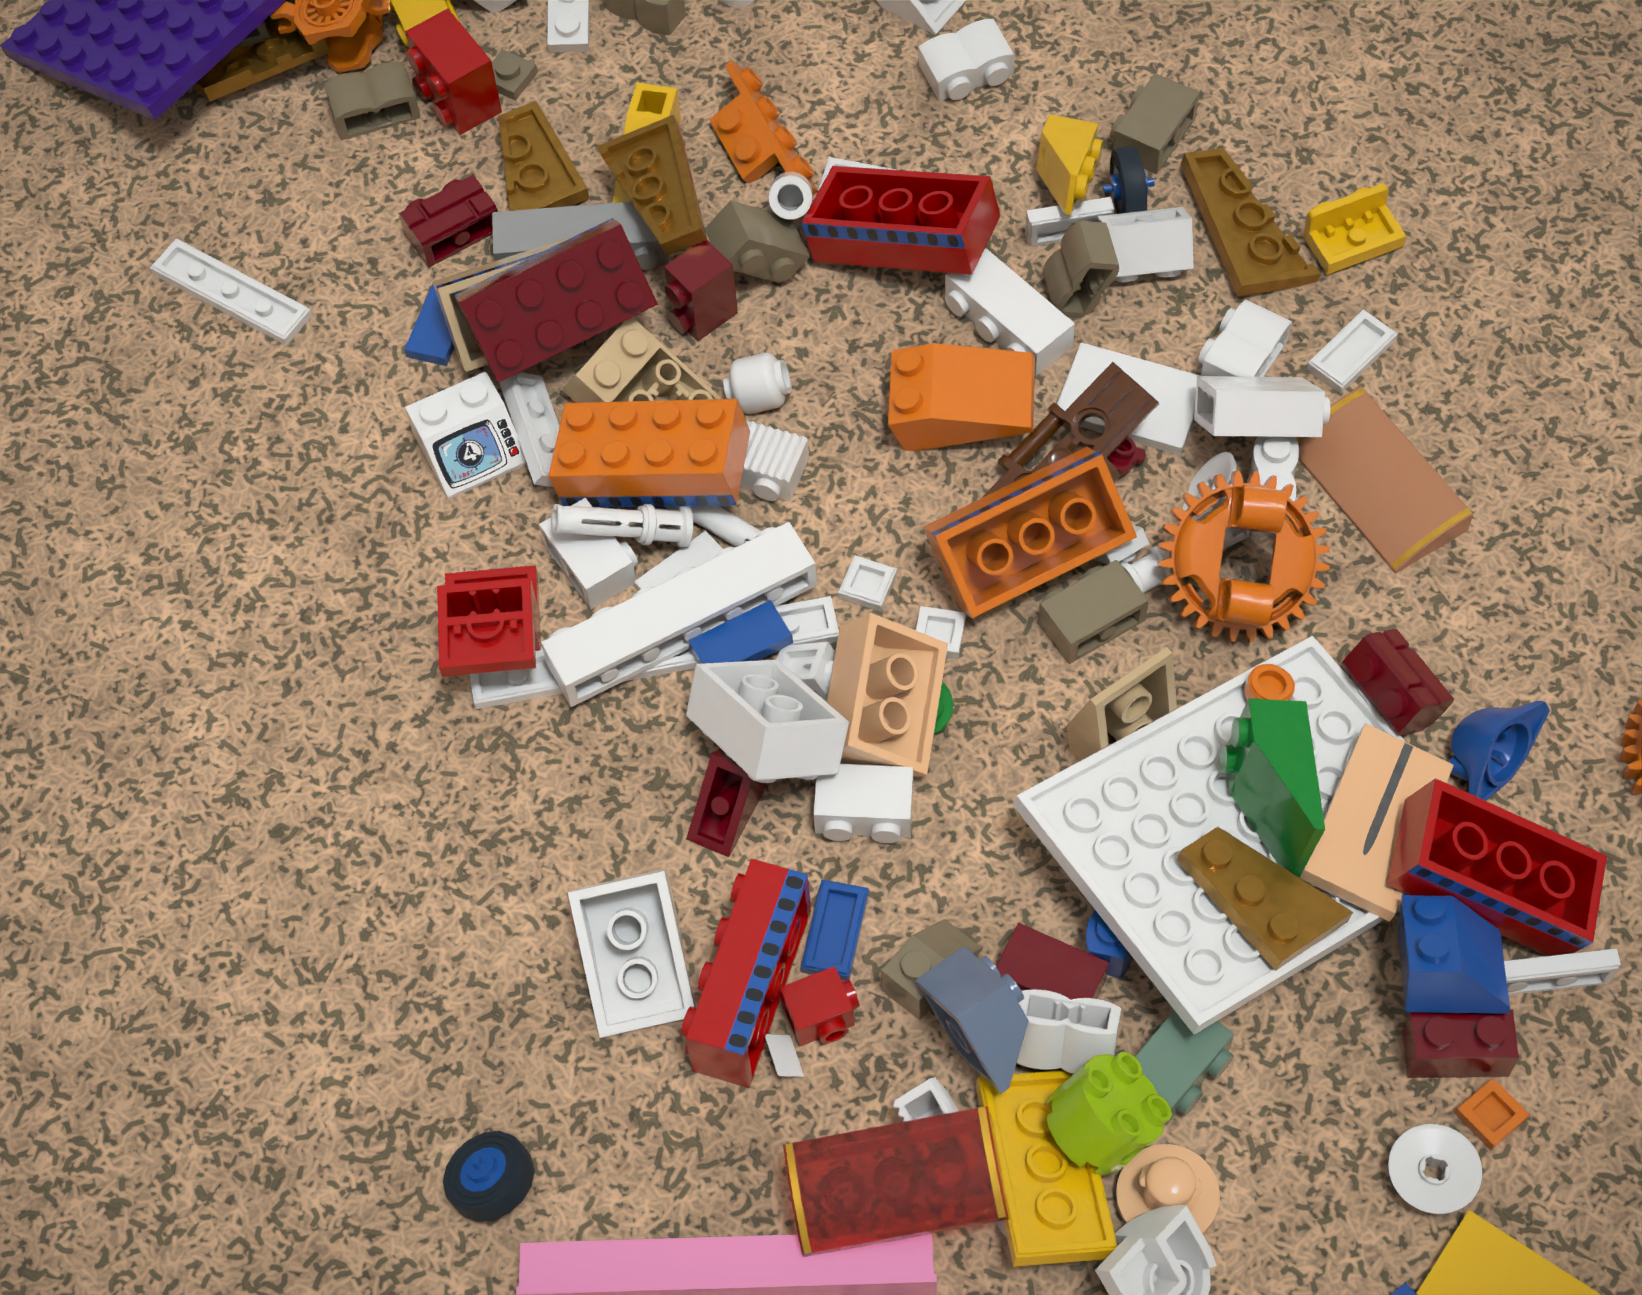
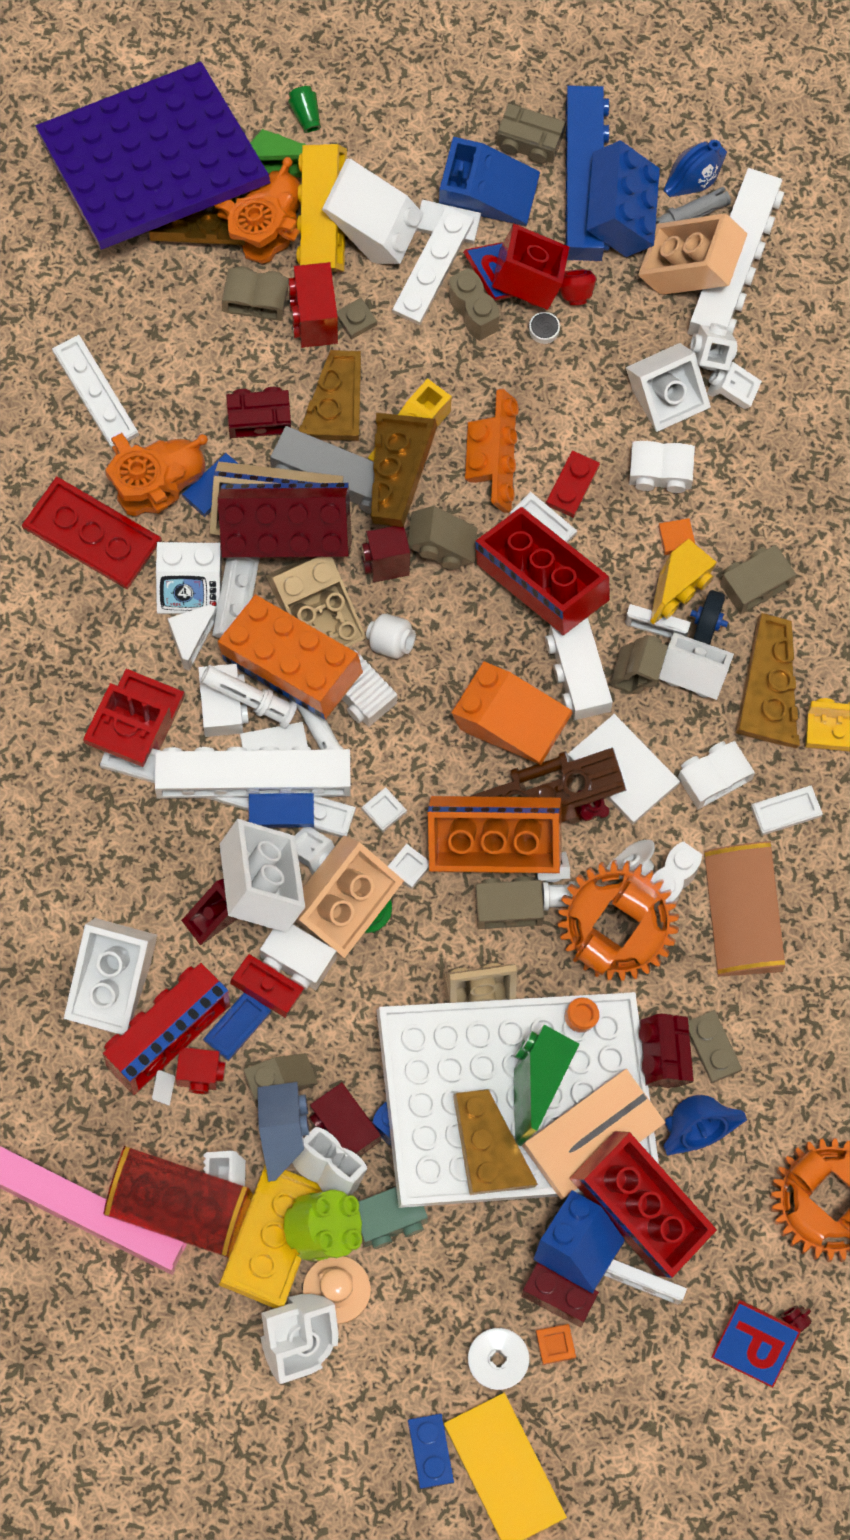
camera: 20 degrees right, 10 degrees up
(313, 446) = (91, 532): none -> red tile
(356, 334) = (154, 472): none -> orange helmet
(502, 495) = (190, 632): none -> white slope
(790, 195) = (481, 515): white brick -> none
(847, 859) = (267, 985): none -> red plate
(873, 128) = (572, 484): none -> red plate
(1026, 126) = (674, 534): none -> orange tile
(1260, 406) = (691, 825): white brick -> none
(1449, 654) = (713, 1047): none -> dark tan plate

